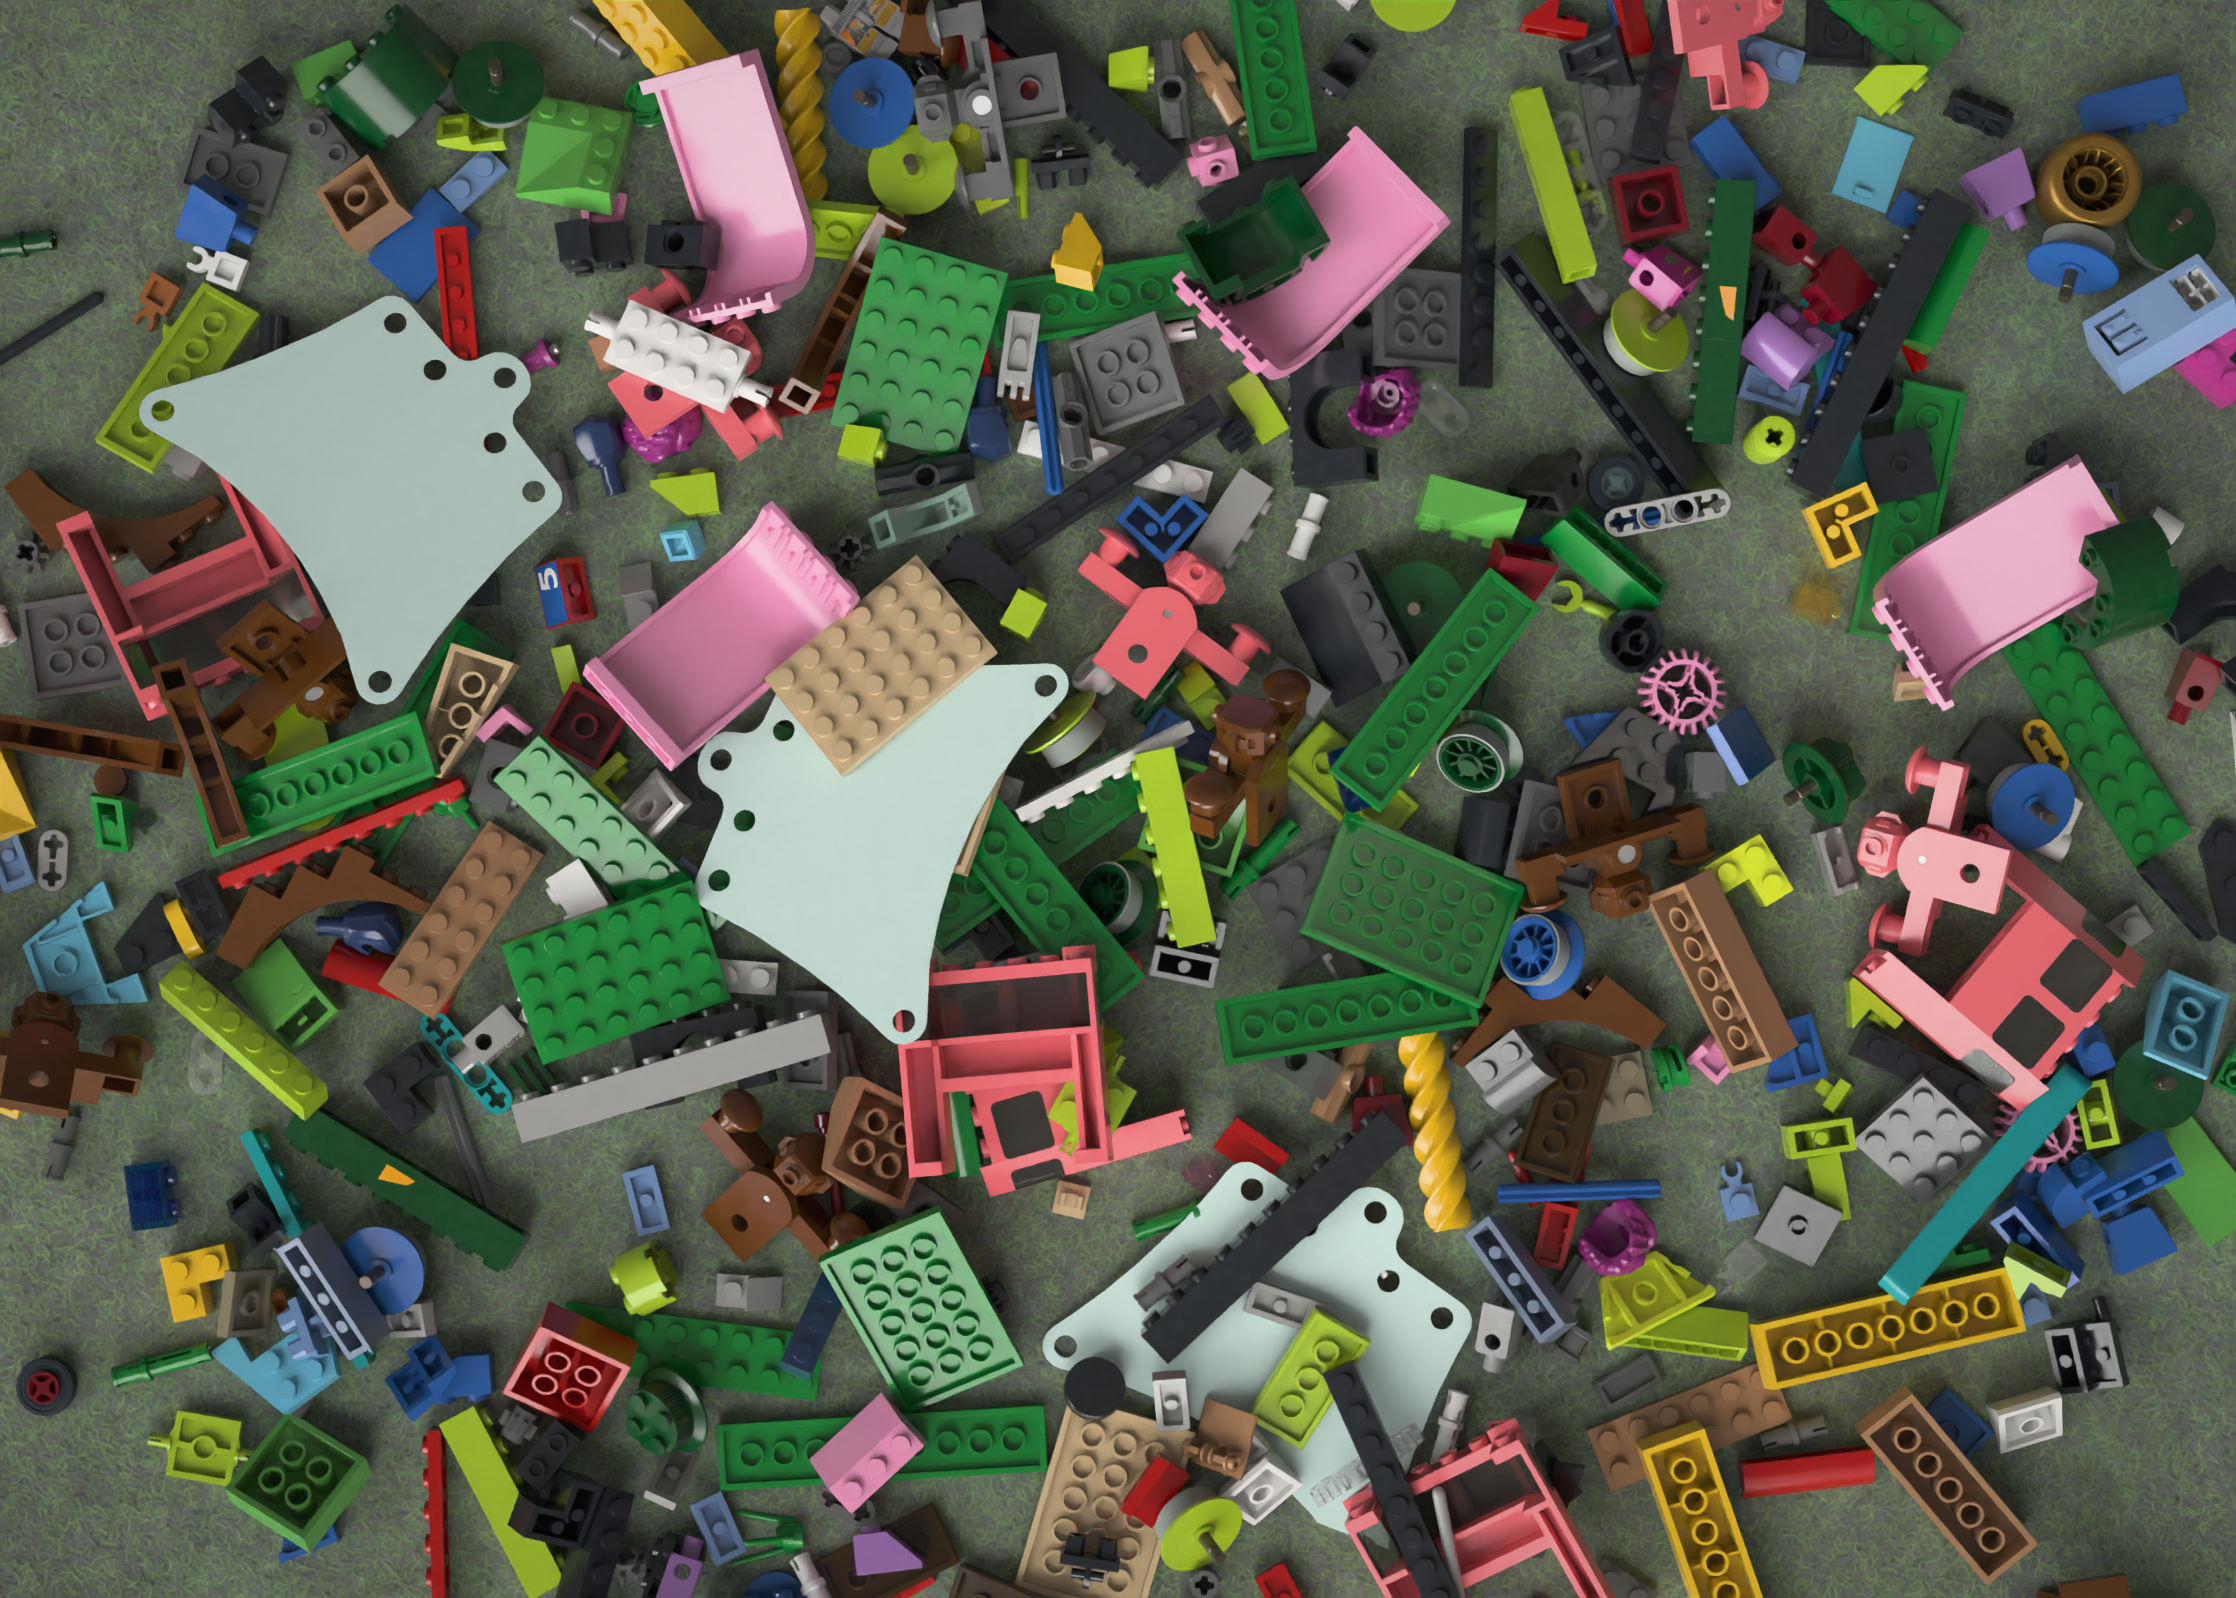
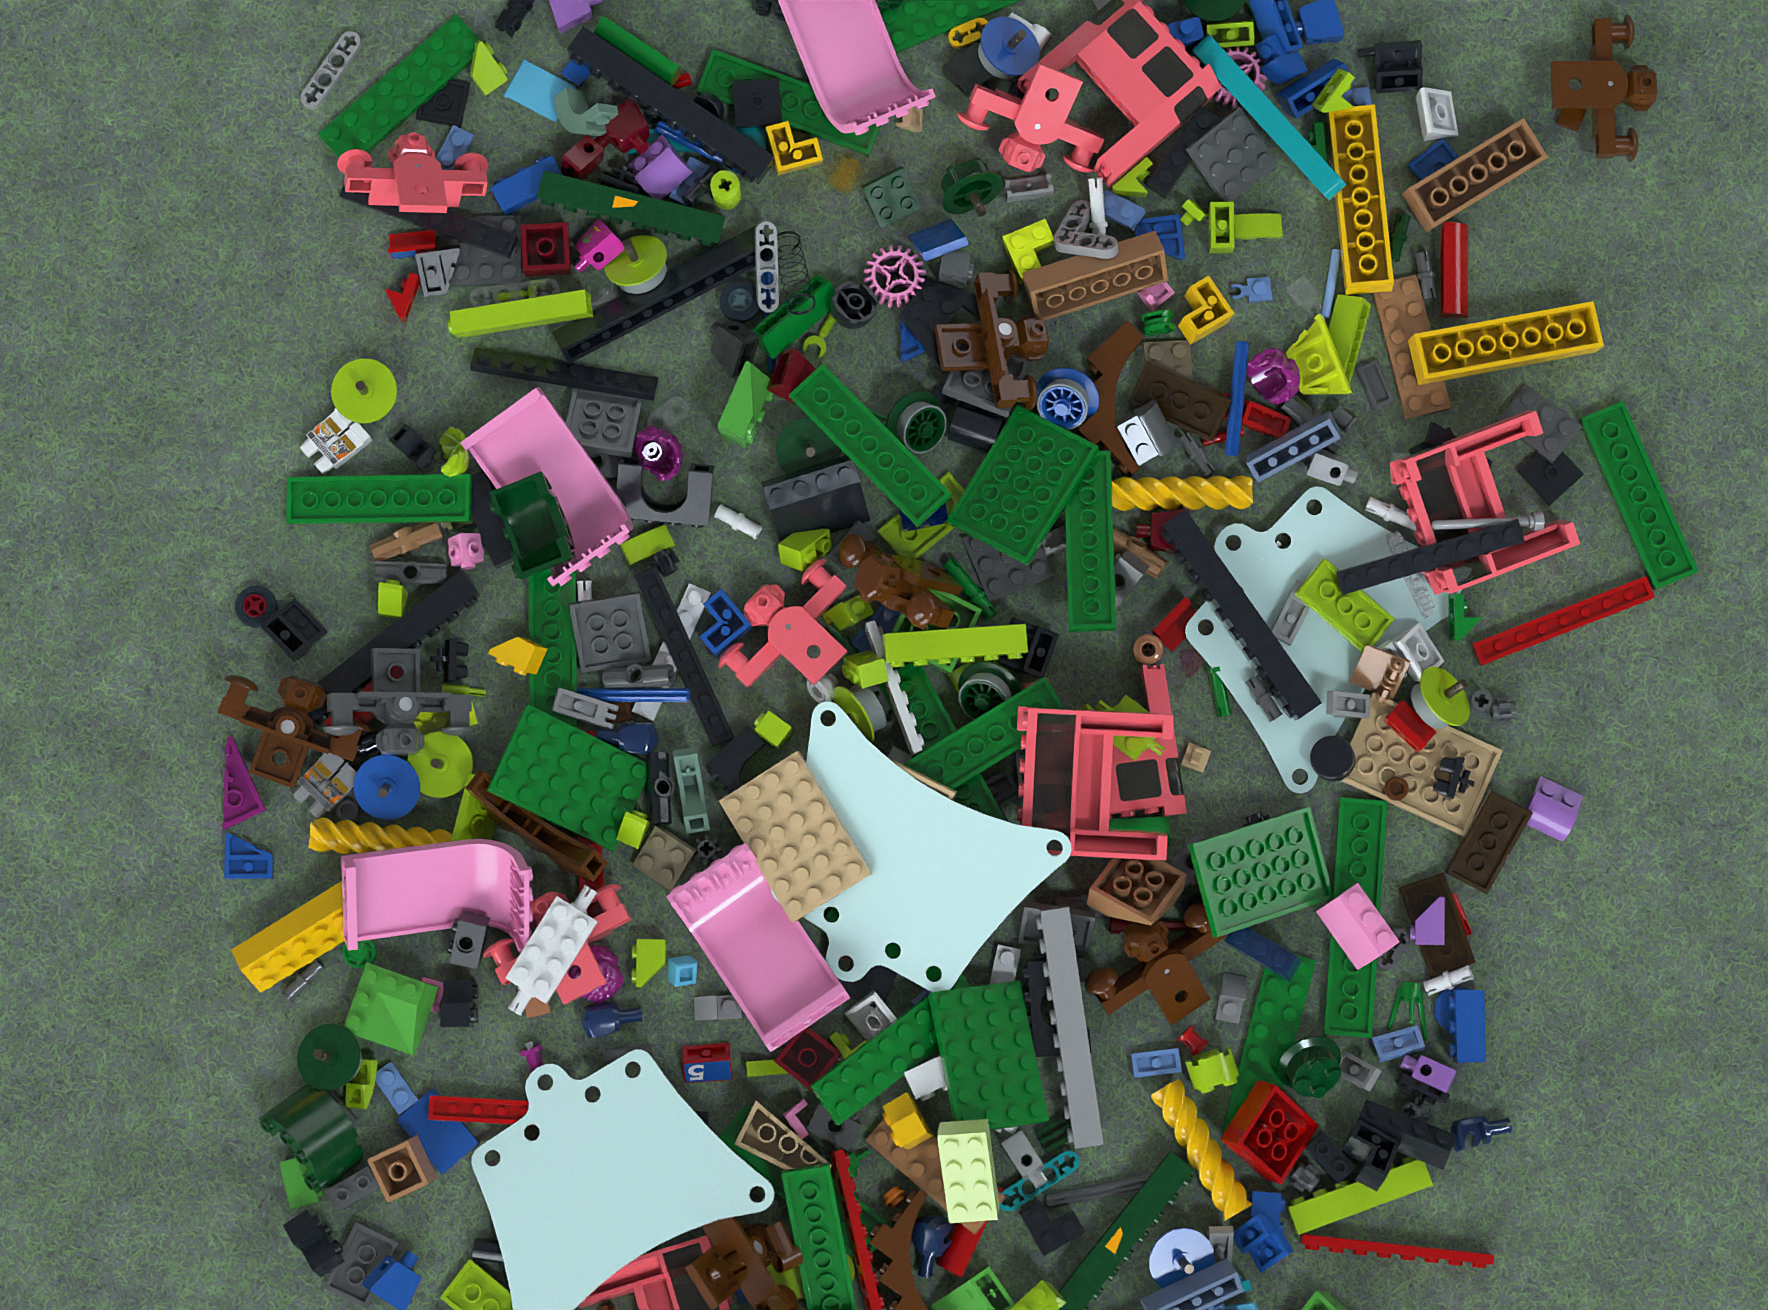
camera: 80 degrees left, 5 degrees down
(223, 269) = (433, 1281): white plate -> none
(314, 731) = (784, 1254): none -> reddish brown piece
(417, 871) = (894, 1197): none -> orange plate
(453, 964) = (968, 1170): none -> yellowish green brick
(516, 873) = (906, 1122): none -> yellow brick
(535, 1278) = (1202, 1151): none -> yellow piece
(683, 1246) = (1192, 1040): none -> red bush
(831, 494) = (664, 858): none -> dark tan plate
(1065, 1481) = (1396, 788): none -> reddish brown tile
(1124, 728) = (865, 669): none -> lime brick
(1199, 1118) = (1155, 653): none -> nougat head
(1232, 520) = (725, 573): light grey brick -> none
(1282, 622) = (804, 548): none -> lime slope
(1307, 1539) = (1457, 623): none -> green slope
(1334, 128) = (453, 451): none -> lime piece
(1608, 563) = (800, 295): none -> black piece
(1696, 1136) = (1209, 312): none -> yellow brick
(1762, 1301) = (1331, 283): none -> light blue bar
(1765, 973) = (1101, 245): none -> light grey beam
(1768, 404) = (700, 186): none -> black pin
(1793, 671) = (891, 196): none -> dark green plate
(1798, 1224) = (1280, 250): plate -> none
(1799, 964) = (1097, 206): none -> white pin
(1822, 992) = (1122, 210): none -> medium blue plate
(1841, 221) = (578, 118): none -> sand green arch
(1844, 1387) = (1398, 235): none -> dark green pin
(2028, 1183) = (1272, 89): blue tile -> none

